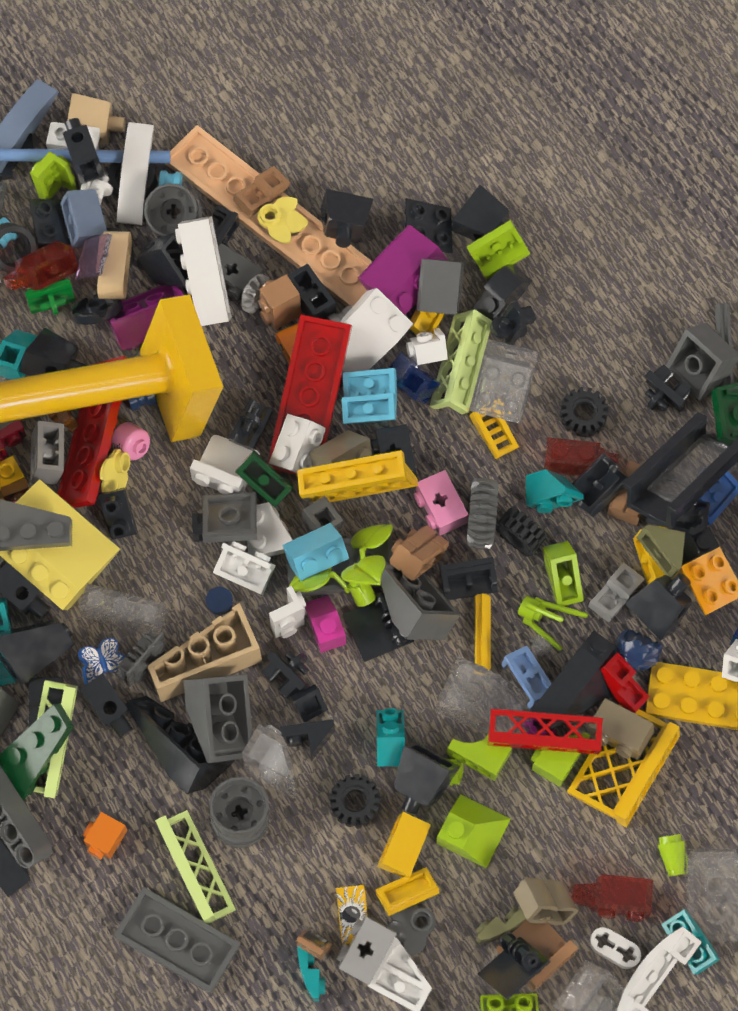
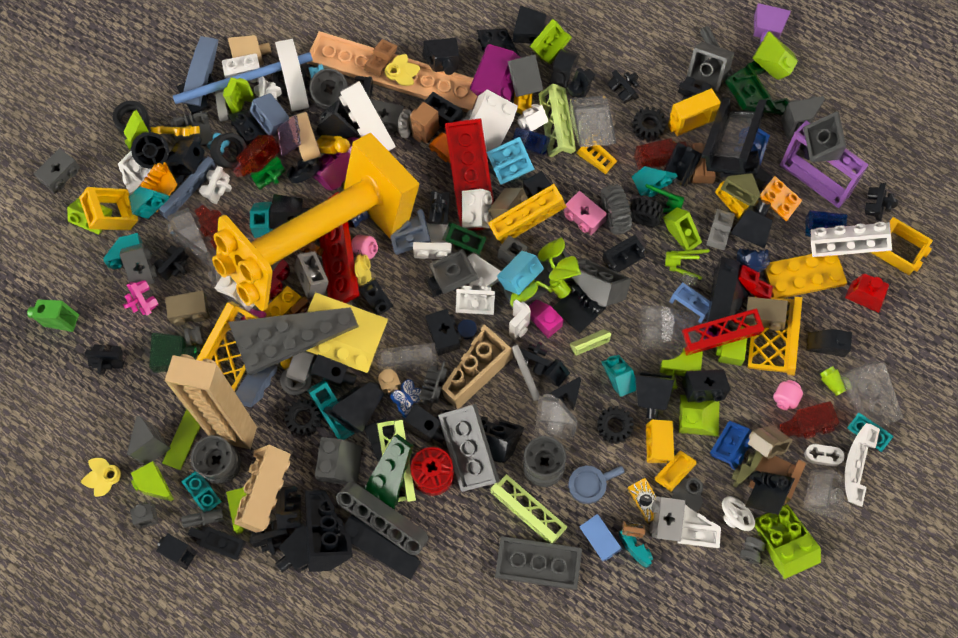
camera: 20 degrees left, 0 degrees up
(26, 187) = (222, 106): none -> light grey beam
(82, 151) = (253, 70): black torso -> none
(88, 631) = (389, 381): none -> tan plate
(89, 784) = (436, 481): none -> red wheel
(104, 836) = (459, 513): orange brick -> none
(145, 288) = (332, 144): none -> yellow plate
(148, 757) = (468, 448): none -> plate
(183, 577) = (443, 342): none -> black brick
(200, 444) = (410, 232): none -> sand blue wing
(220, 715) = (504, 402): dark grey slope -> none
(267, 686) = (525, 372): none -> light grey bar
(271, 939) = (600, 538): none -> medium blue hinge
(287, 864) = (589, 483): none -> sand blue piece
(372, 679) = (590, 342): none -> yellowish green slope
(418, 552) = (586, 248): medium nougat brick -> none
(456, 980) = (734, 516): none -> white piece
(483, 630) = (647, 283): yellow axle -> none
(495, 886) = (732, 444): none -> blue bracket
(496, 795) = (705, 385): none -> black brick
(569, 337) = (628, 92): none -> black hips
(569, 530) = (674, 201): none -> green plant
(601, 850) = (788, 395): none -> bright pink head
(647, 418) = (693, 112): none -> yellow window
(691, 801) = (829, 342): none -> black slope

